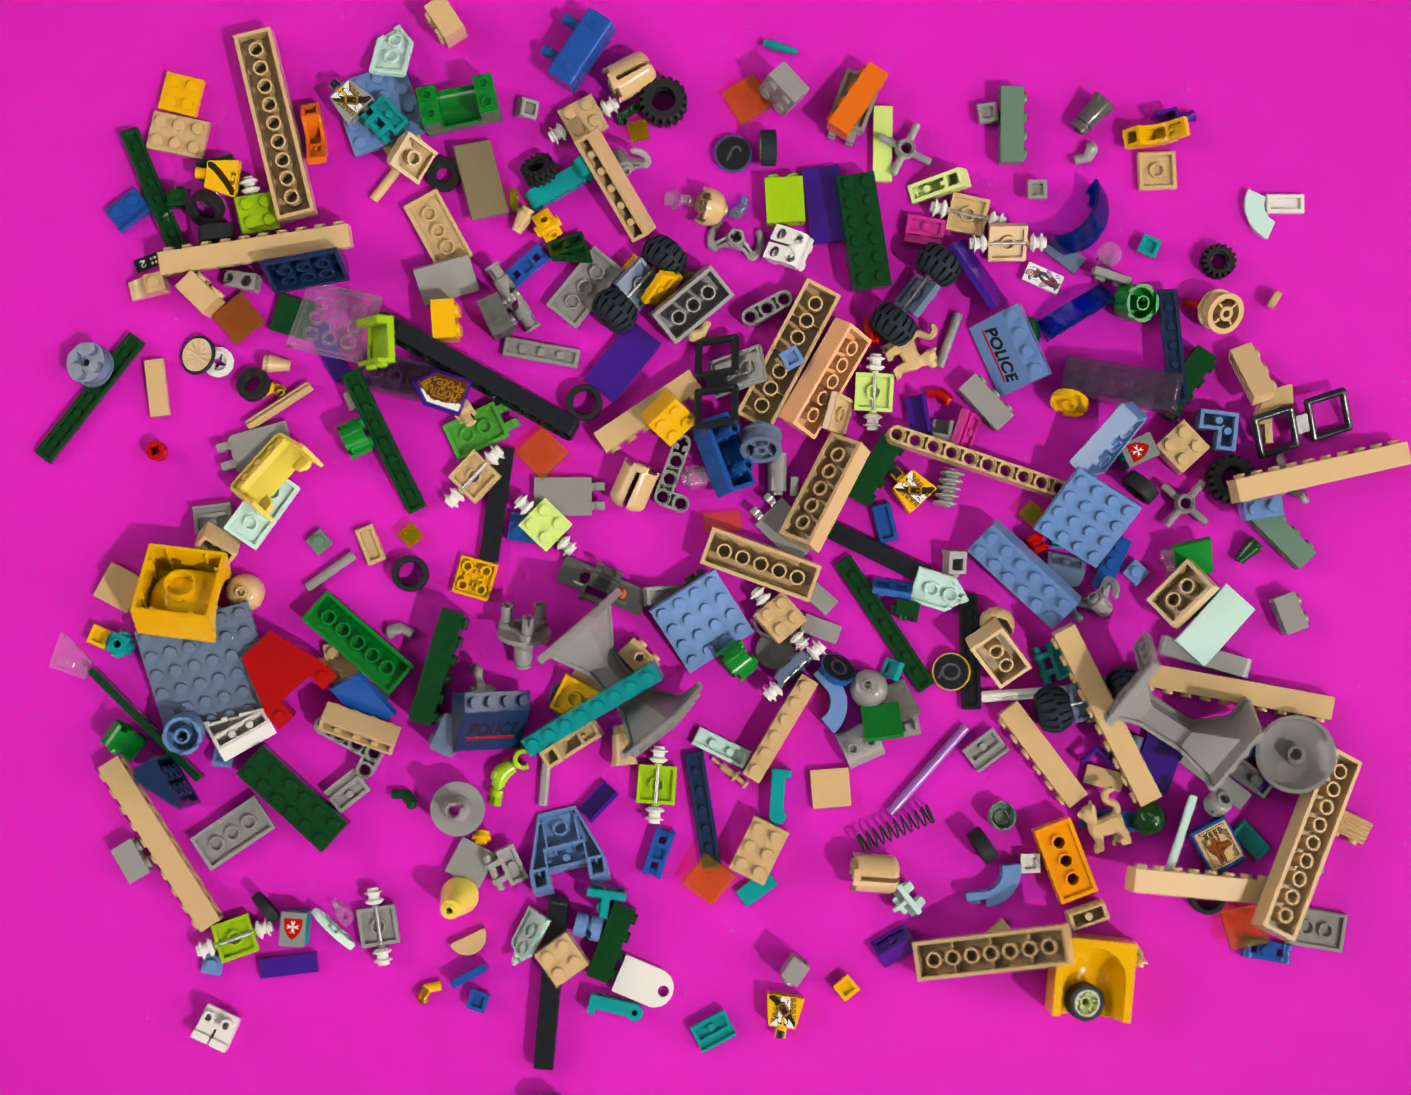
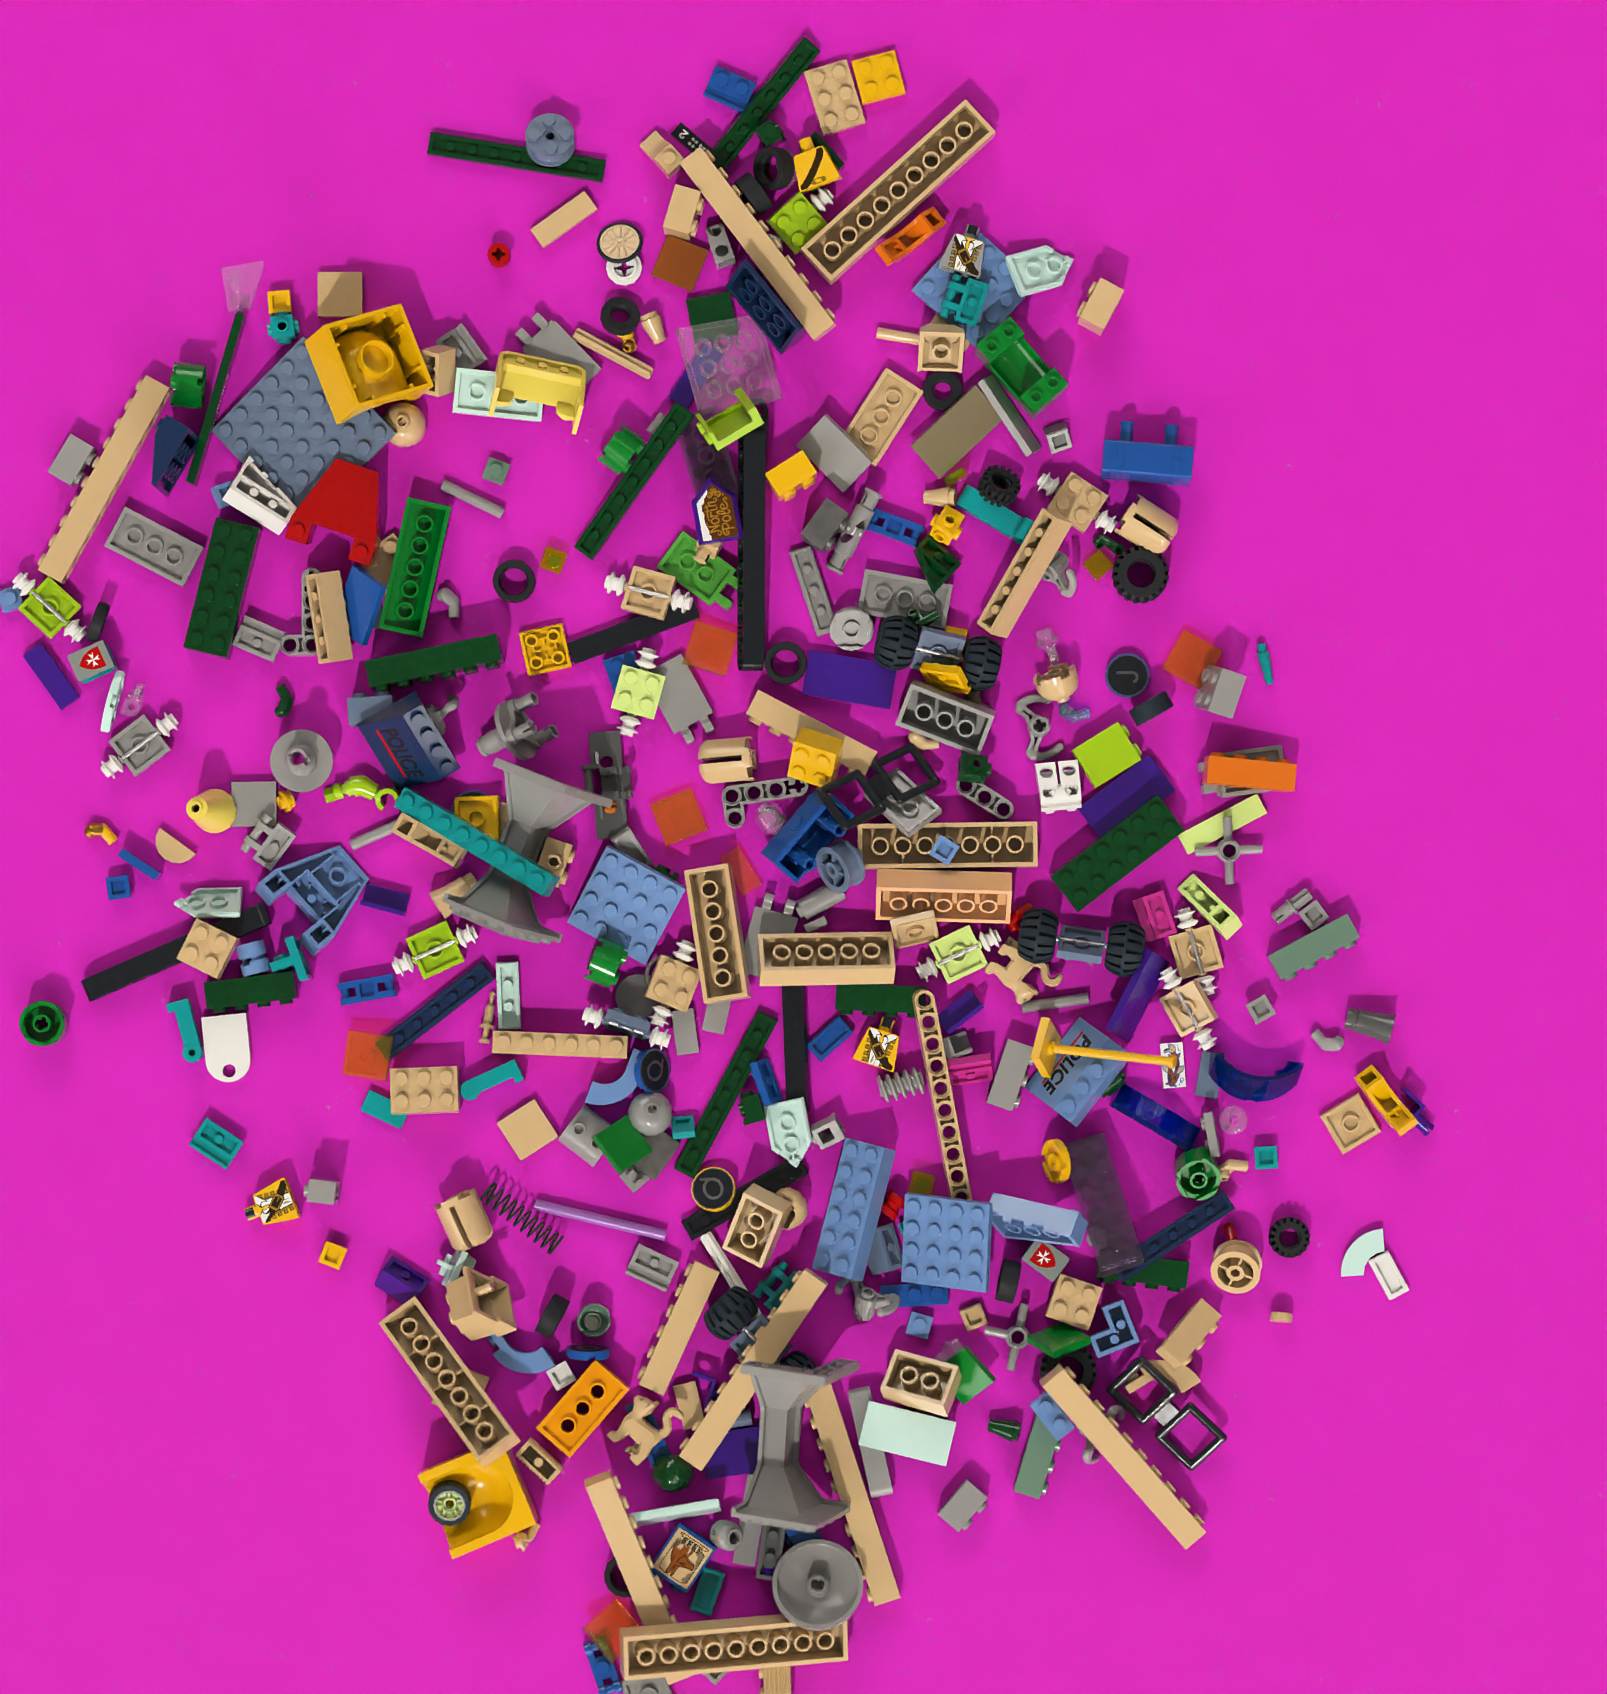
camera: 70 degrees right, 0 degrees up
(183, 743) = (216, 445): medium blue brick -> none
(370, 544) = (521, 524): tan tile -> none
(490, 134) = (1009, 415): none -> light grey tile
(585, 339) = (851, 628): none -> light grey tile
(608, 281) = (922, 619): none -> dark green arm
(656, 546) = (678, 817): none -> tile
(739, 307) = (973, 768): none -> dark green brick
(942, 394) = (995, 1025): red arm -> none
(946, 896) = (480, 1305): none -> tan piece
(971, 125) = (1291, 906): none -> light grey axle
(981, 361) = (1047, 1046): none -> yellow tile
(1022, 835) = (587, 1351): none -> tile
(1142, 272) = (1230, 1166): none -> tan arm
(1151, 528) = (973, 1317): none -> tan tile
(1205, 473) = (1058, 1340): none -> green tile

